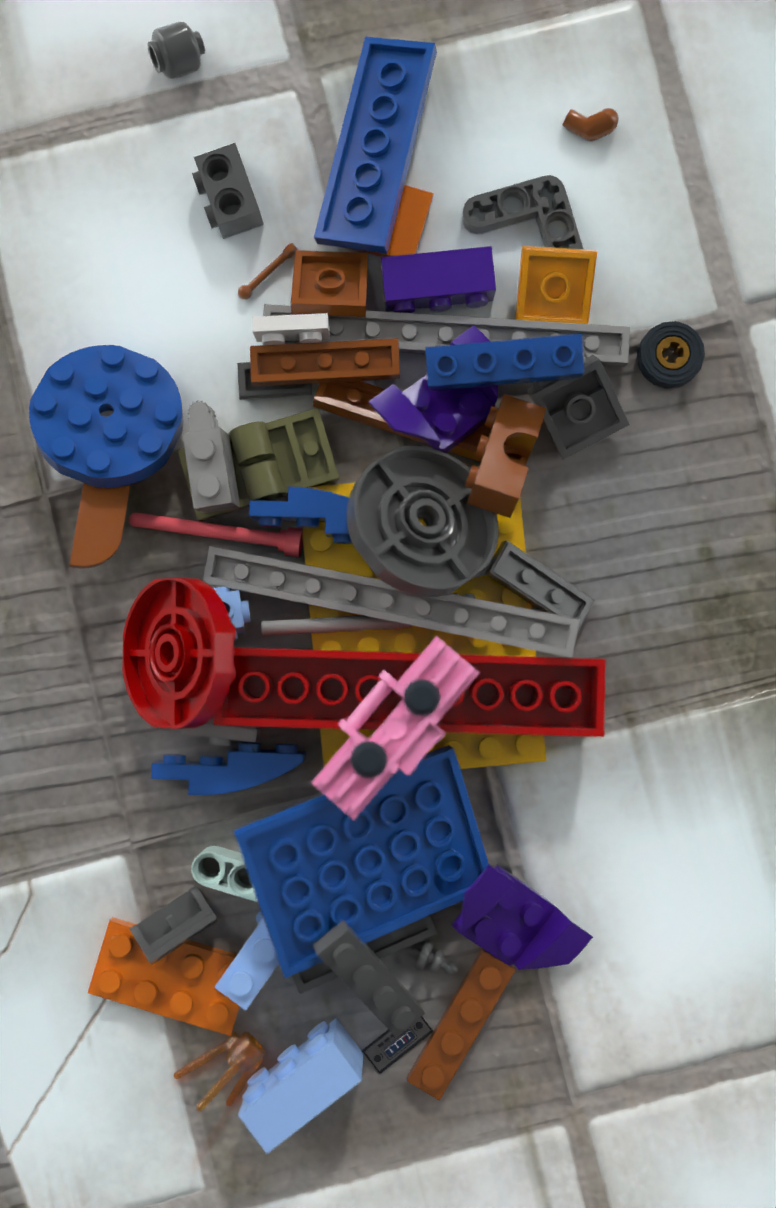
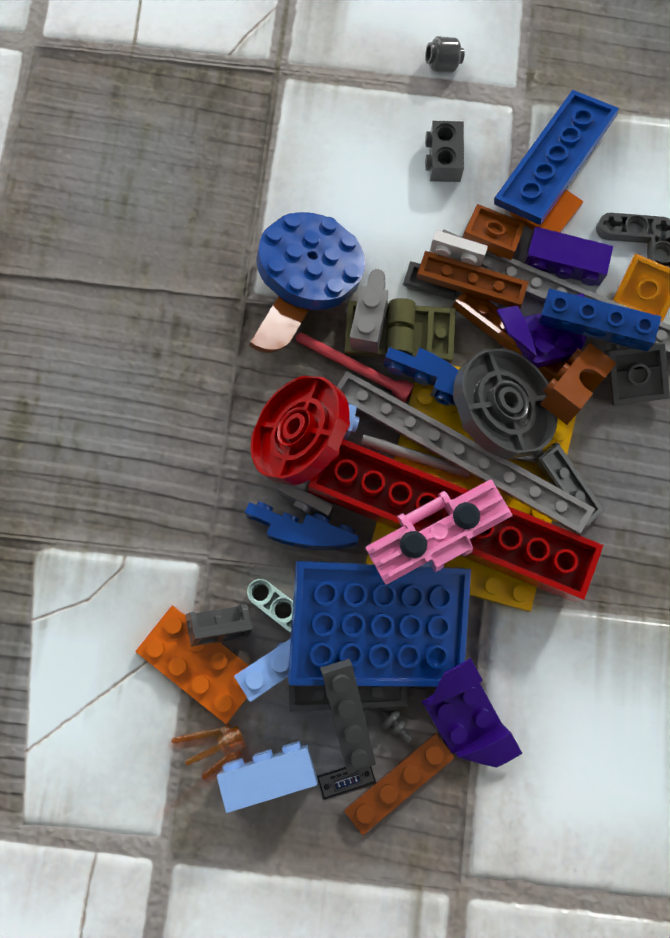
camera: 15 degrees right, 10 degrees down
(245, 291) = (432, 218): dark orange hinge -> none

